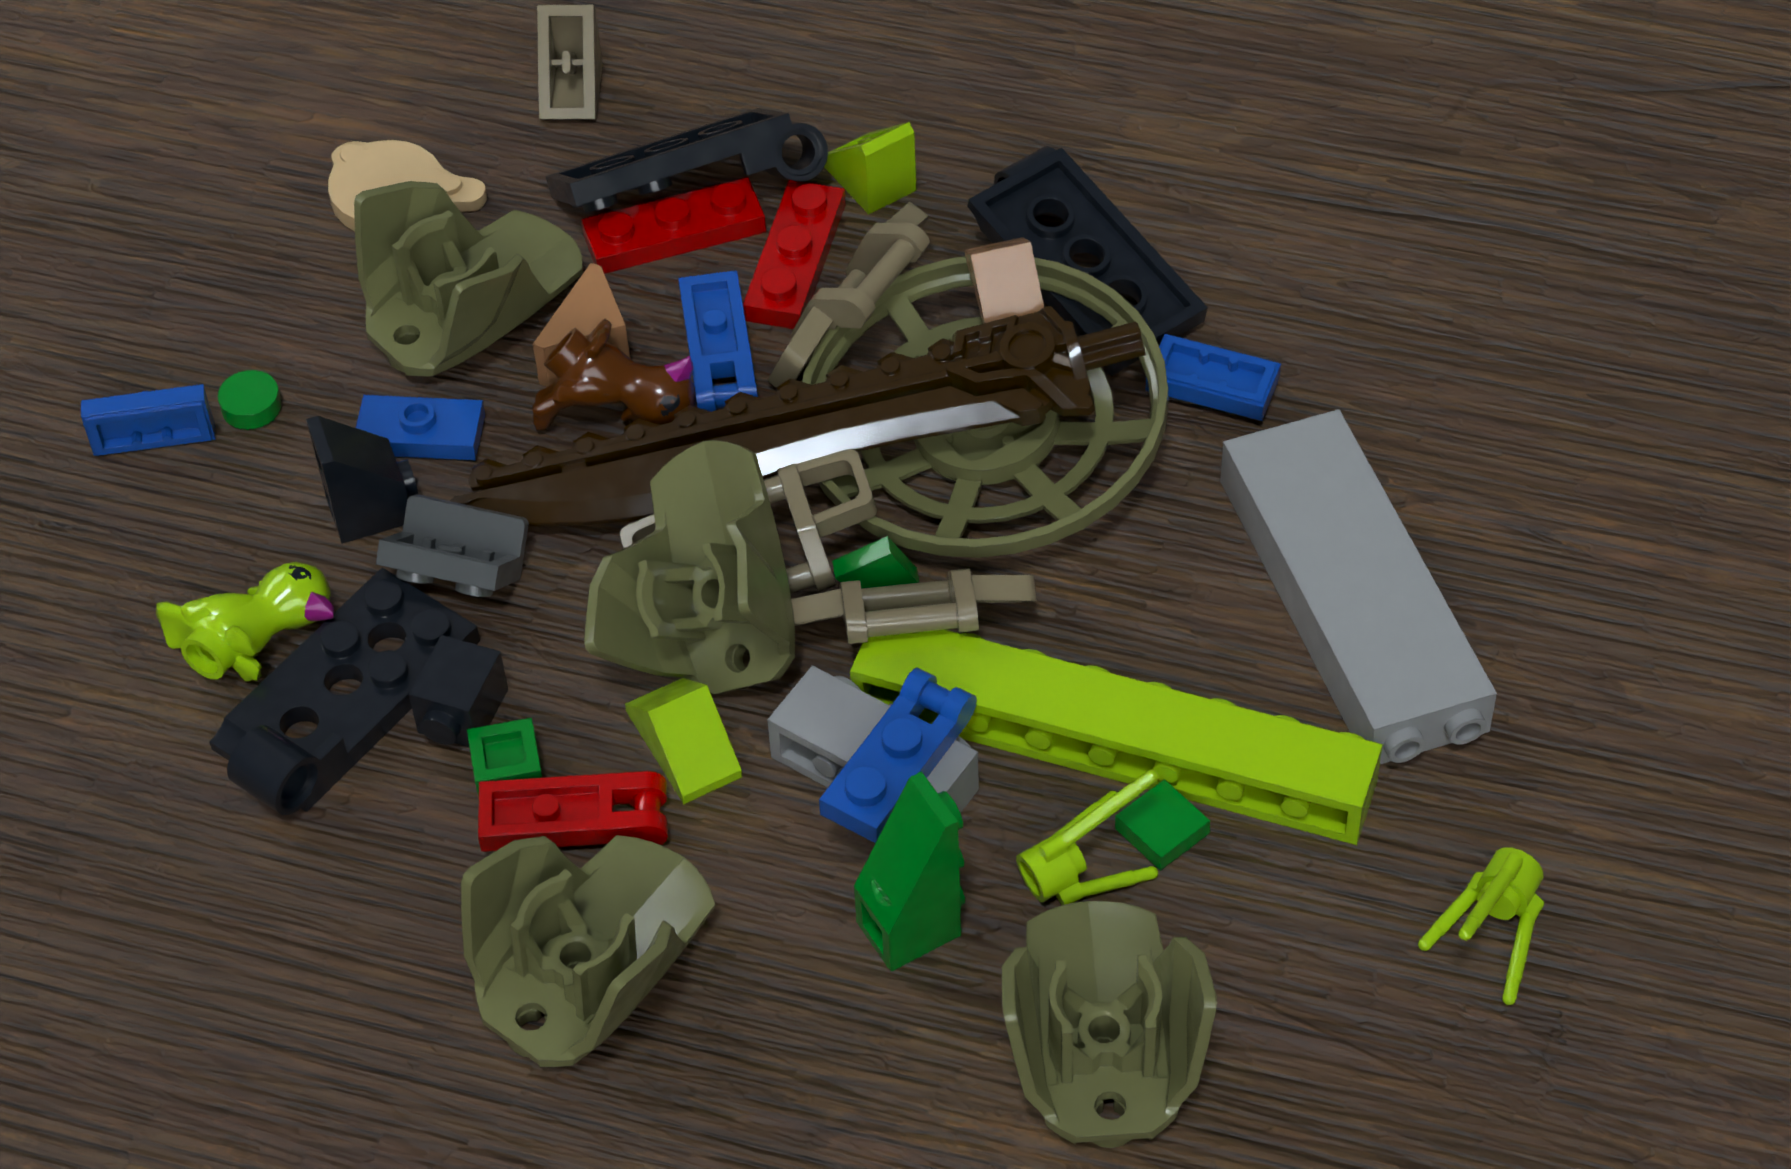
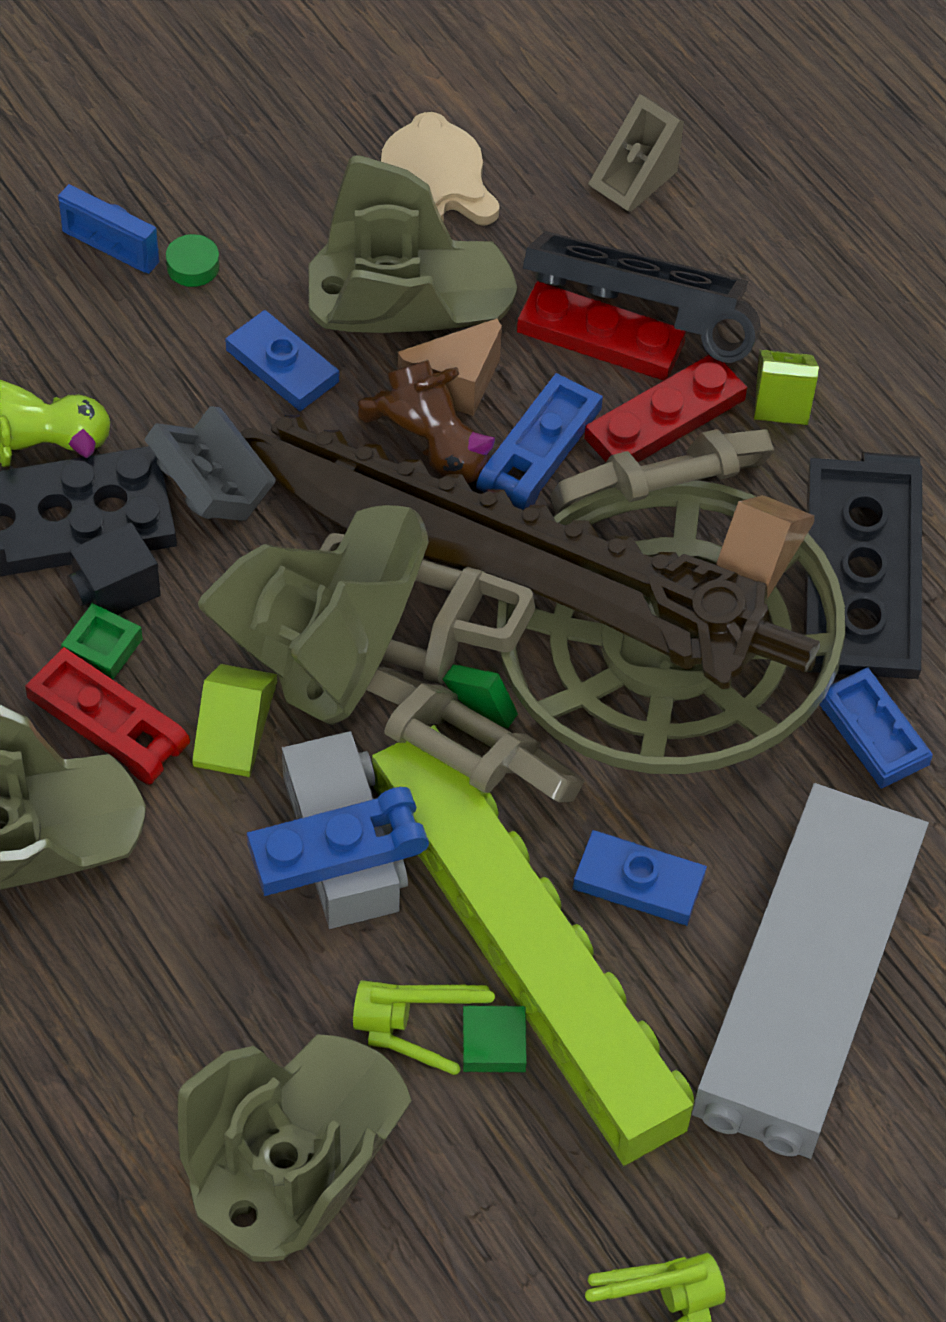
camera: 35 degrees right, 5 degrees up
(360, 478) = (191, 366): black slope -> none
(911, 881) = (257, 943): green slope -> none
(1147, 619) = (639, 877): none -> blue plate

